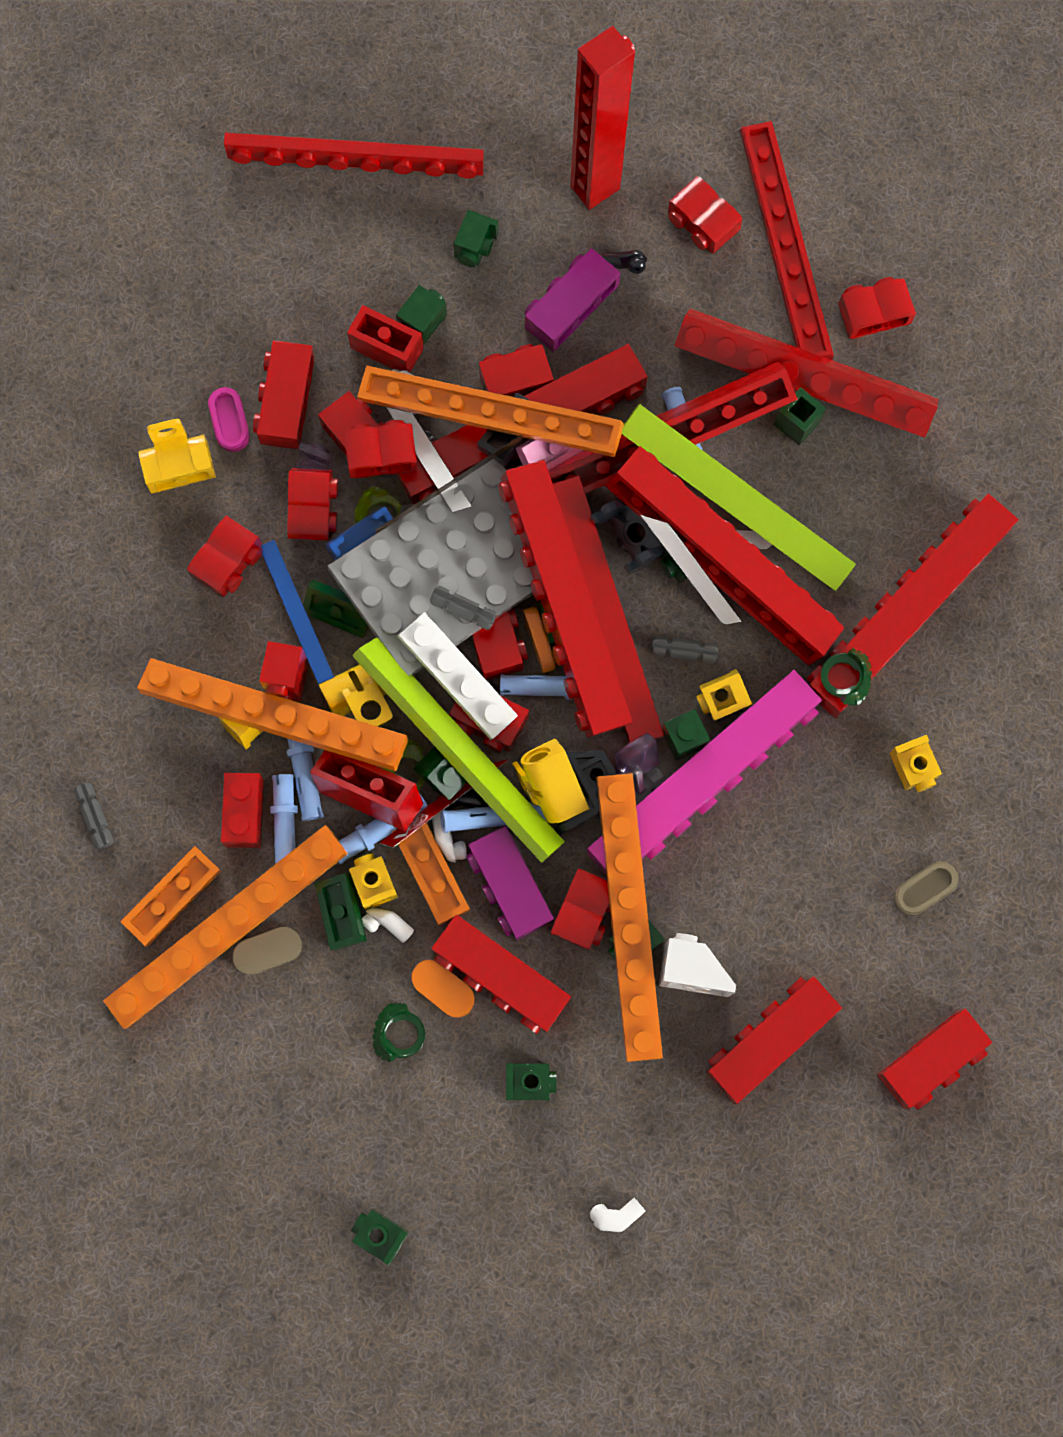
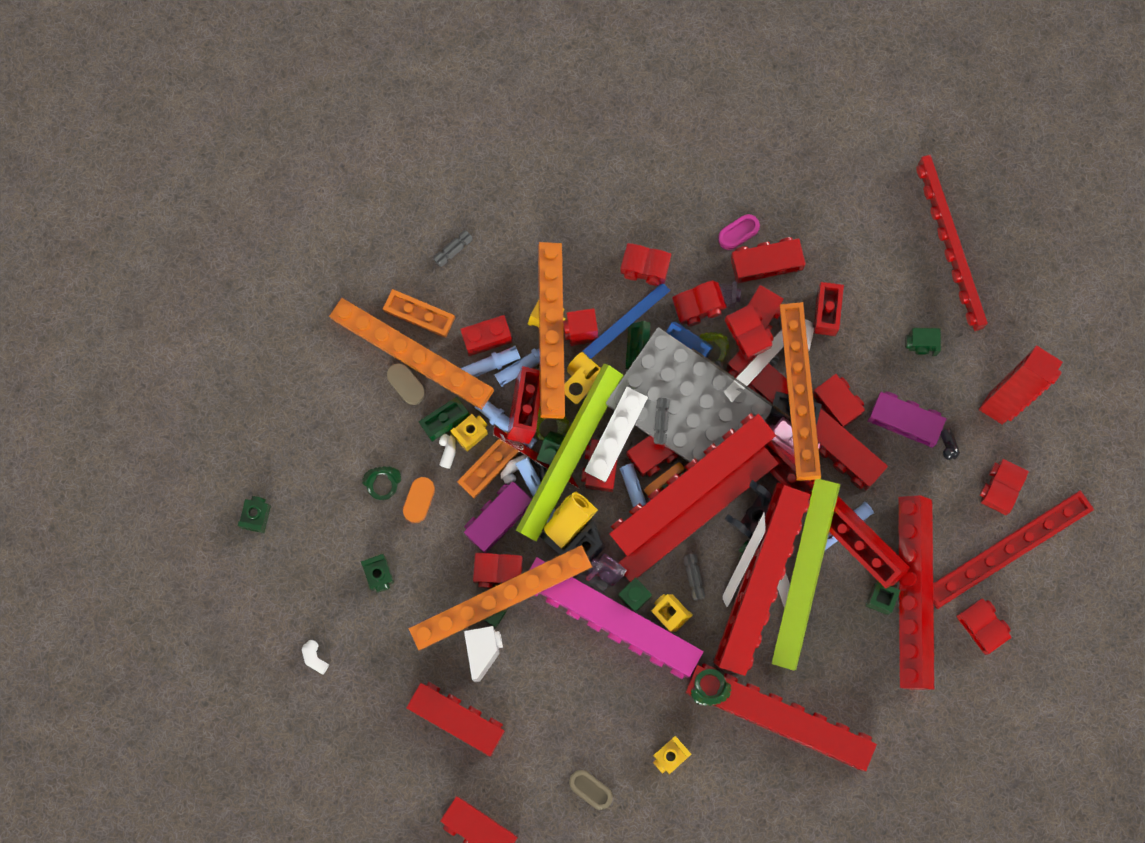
camera: 75 degrees right, 0 degrees up
(175, 458) = (698, 208): yellow piece -> none
(423, 311) = (858, 326): dark green brick -> none
(501, 974) = (438, 532): red brick -> none

